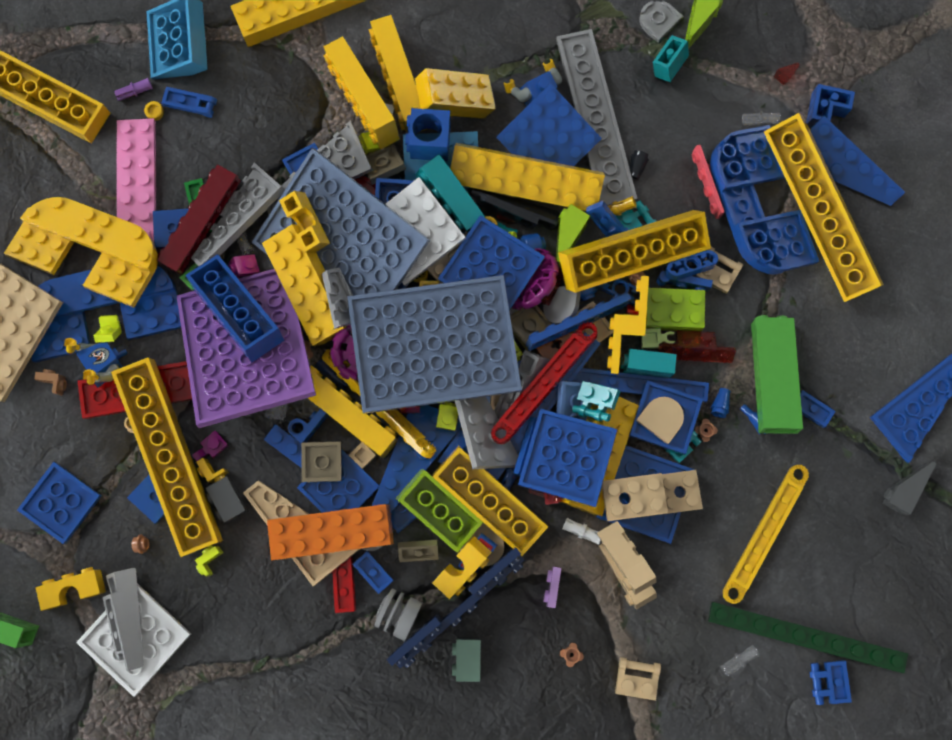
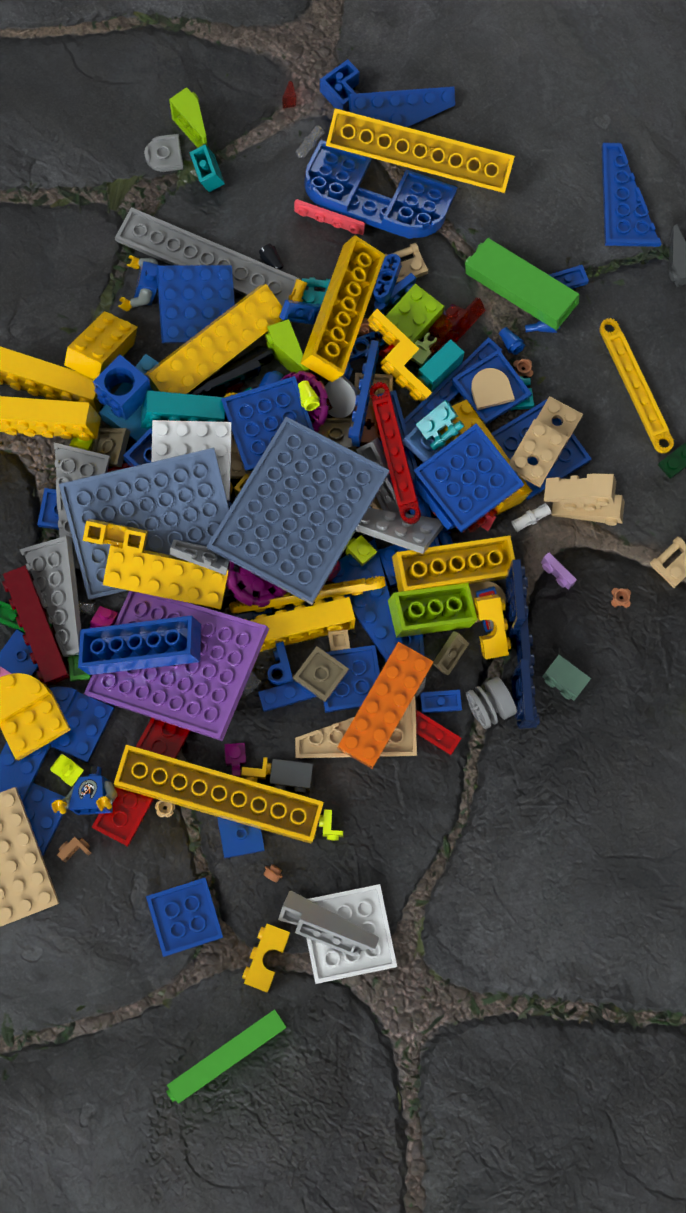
camera: 55 degrees left, 5 degrees down
(534, 280) = (308, 397): none -> neon yellow cone

